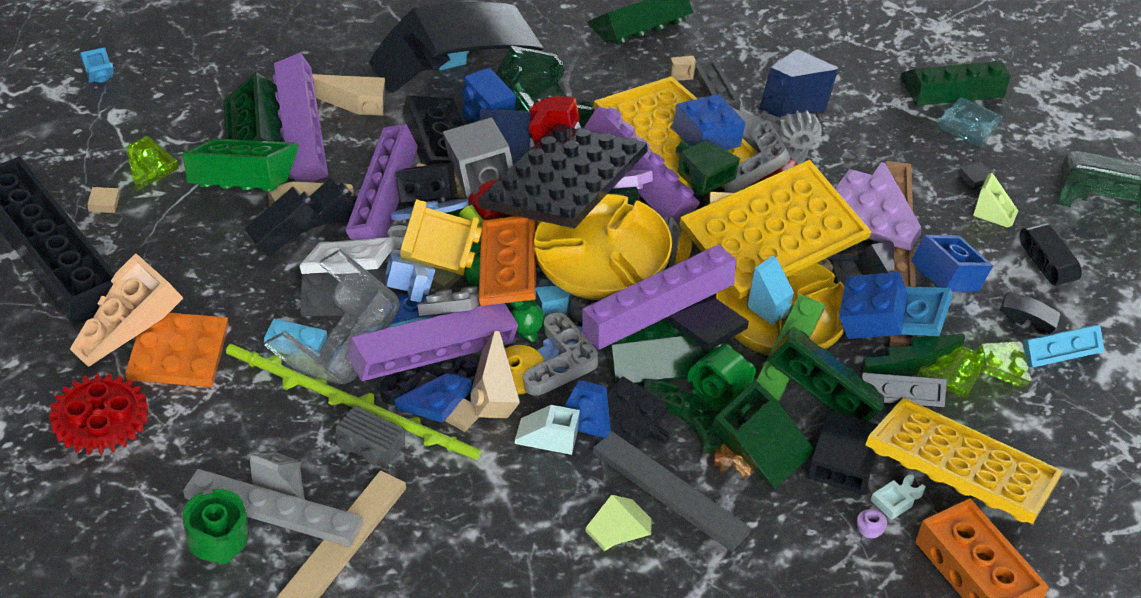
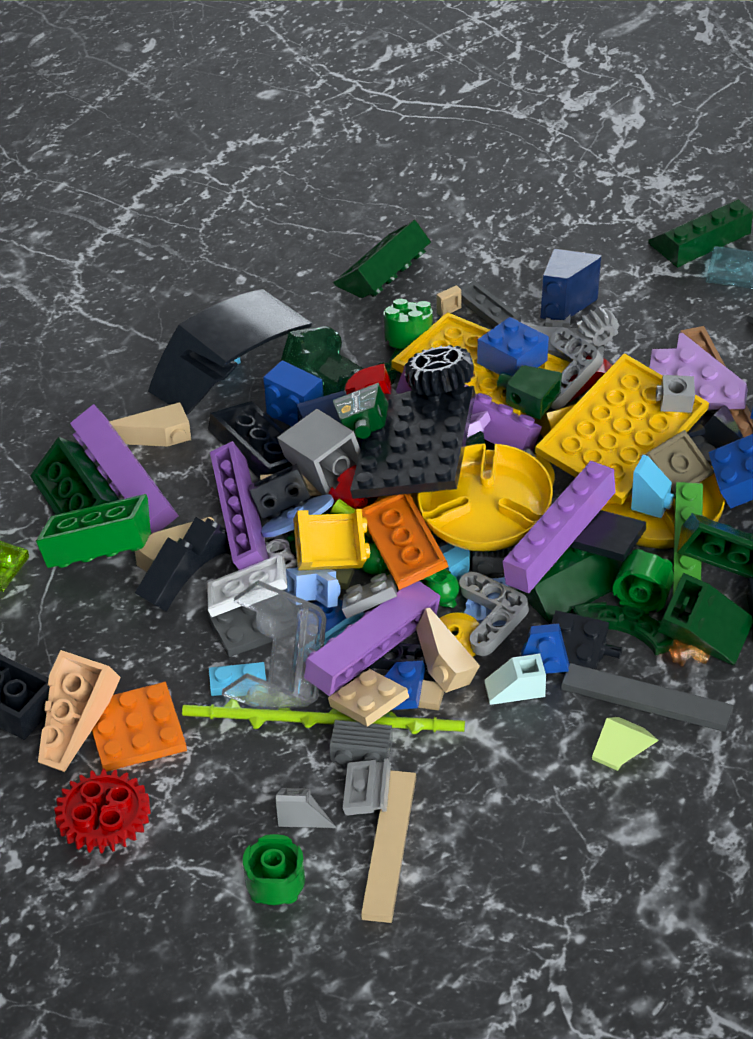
camera: 15 degrees left, 0 degrees up
(282, 509) = (319, 835): light grey plate -> none
(351, 479) = (366, 787): none -> light grey plate
(397, 395) = (368, 697): none -> tan plate
(531, 132) = (363, 410): none -> dark green torso
(620, 118) = (439, 370): none -> black gear
(629, 71) = (406, 322): none -> green brick
(814, 276) = (681, 460): none -> dark tan plate
(839, 211) = (676, 393): none -> light grey brick

